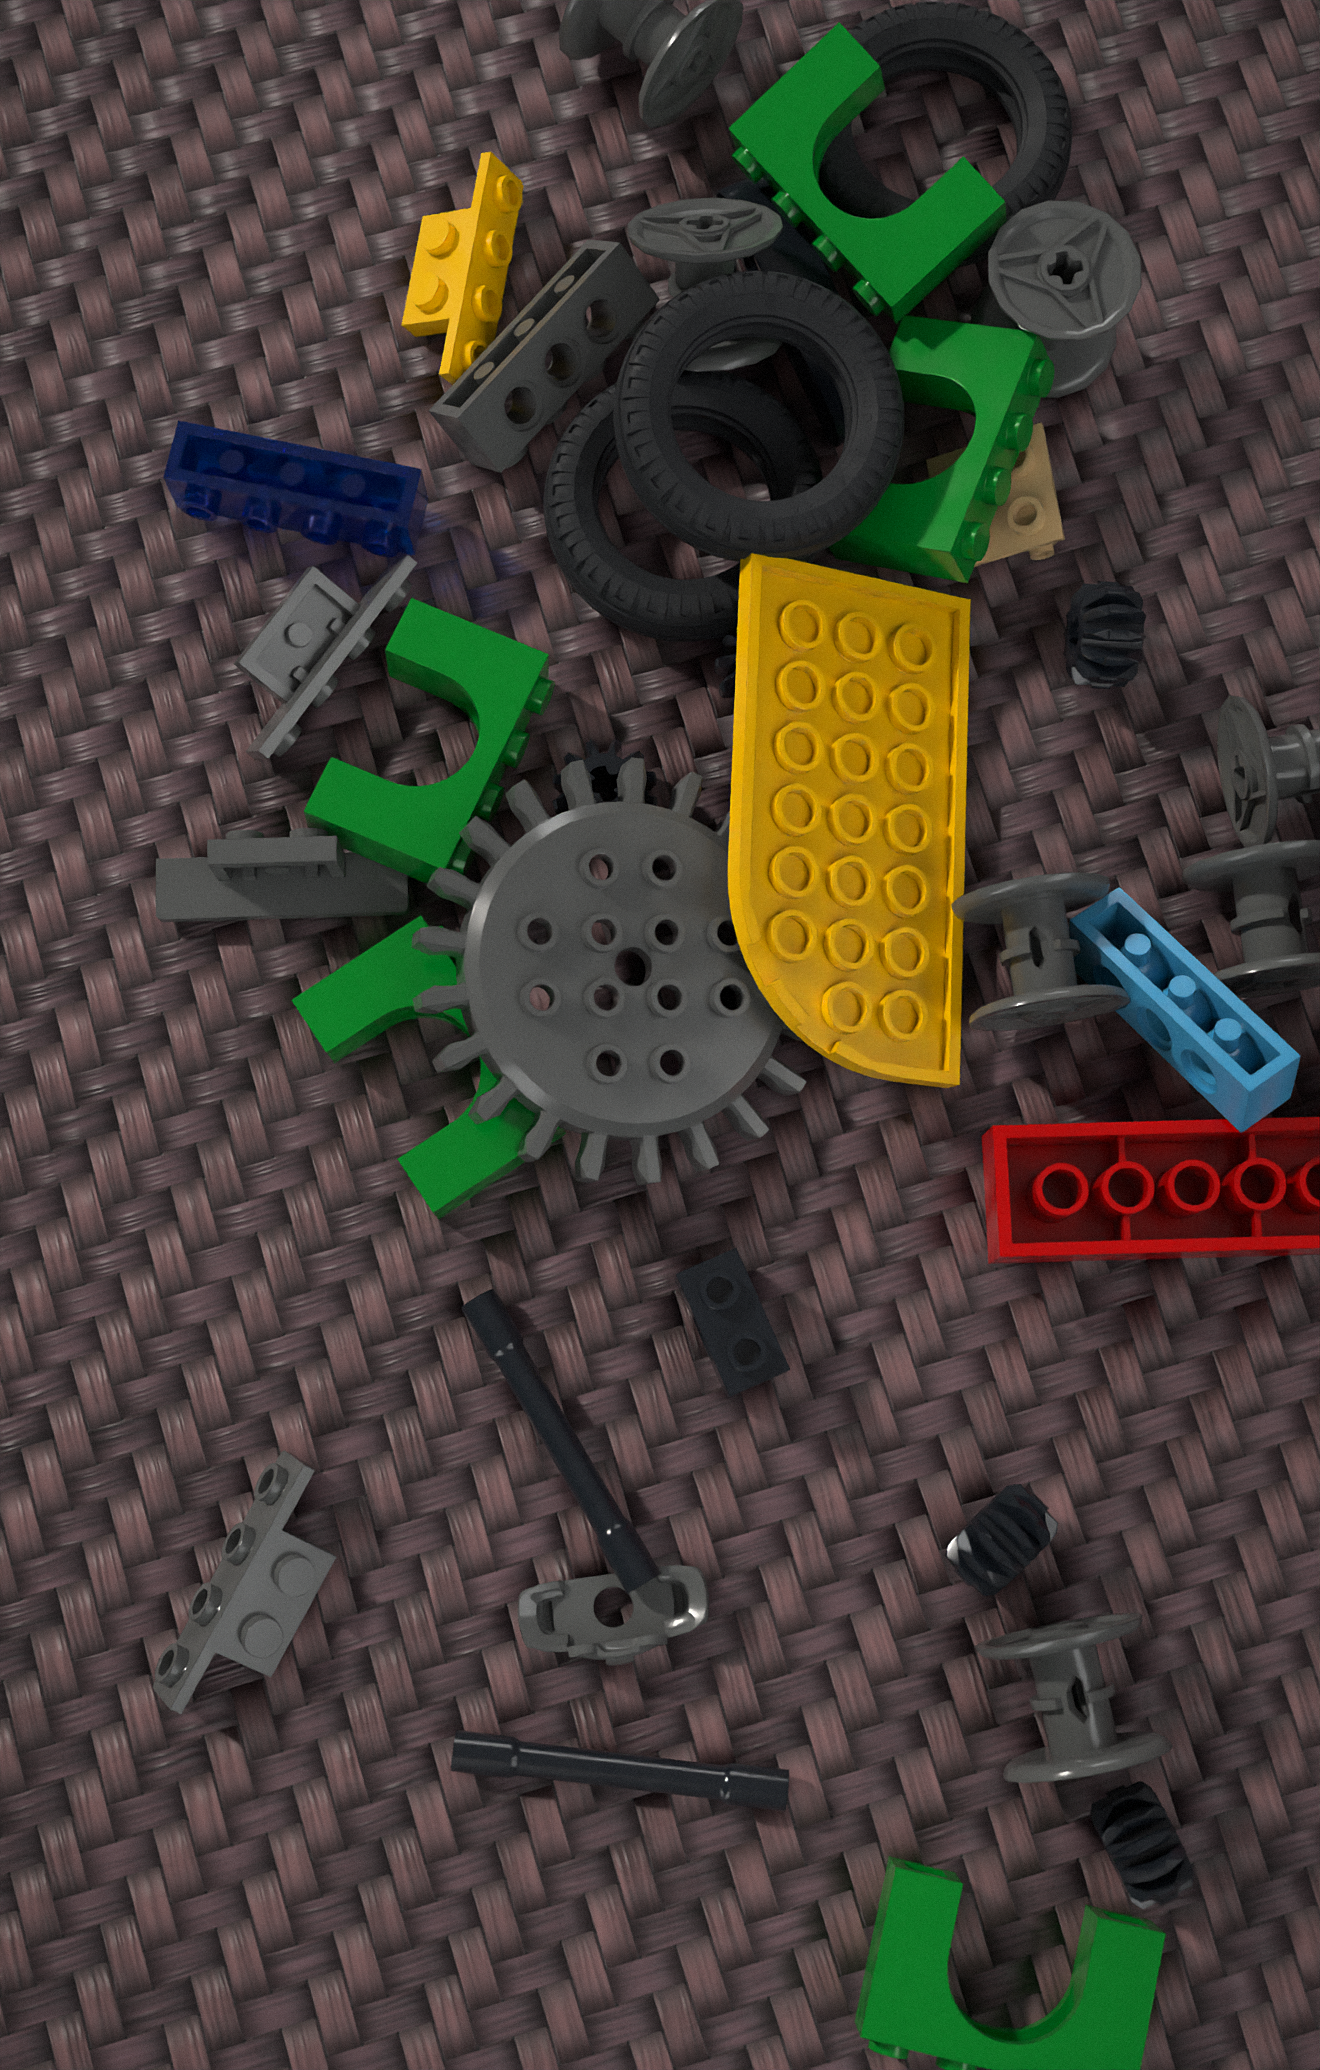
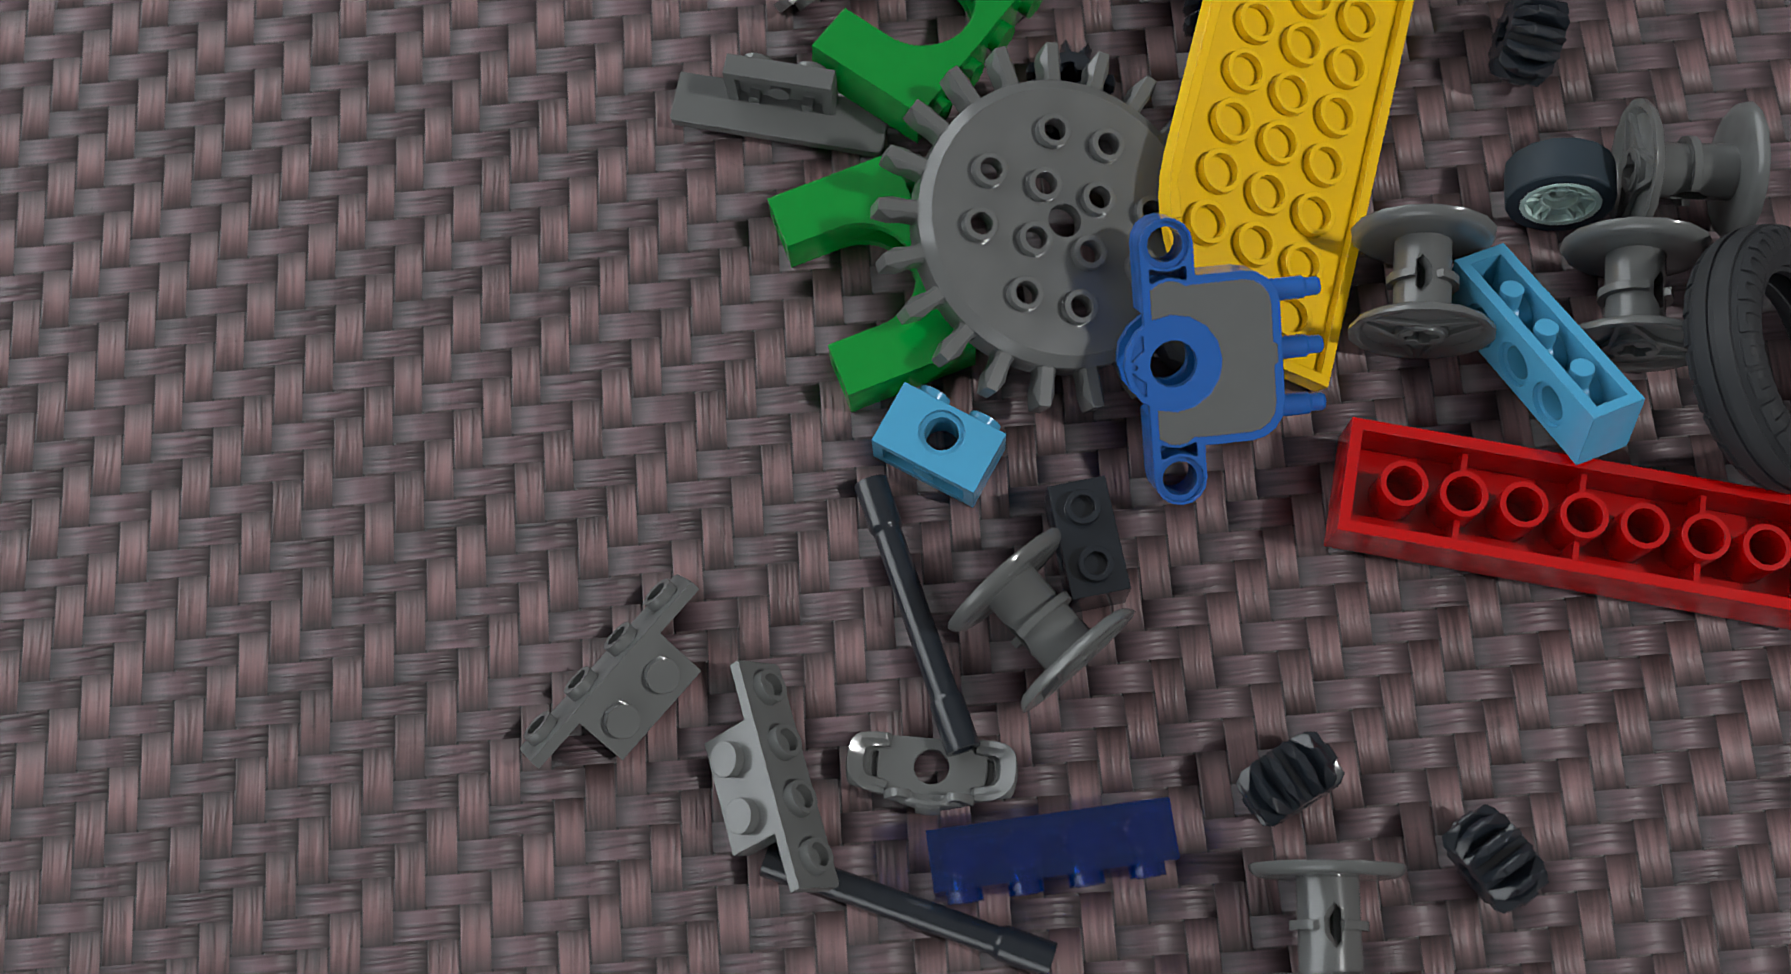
camera: 20 degrees right, 5 degrees down
(438, 1669) = (767, 782): none -> dark grey bracket
(505, 1244) = (954, 471): none -> dark azure brick
(700, 1428) = (1039, 617): none -> dark grey piece
(761, 1672) = (1052, 847): none -> clear blue brick
(850, 1086) = (1232, 361): none -> blue piece
(1168, 802) = (1560, 184): none -> black wheel
(1233, 1578) = (1495, 859): none -> black gear

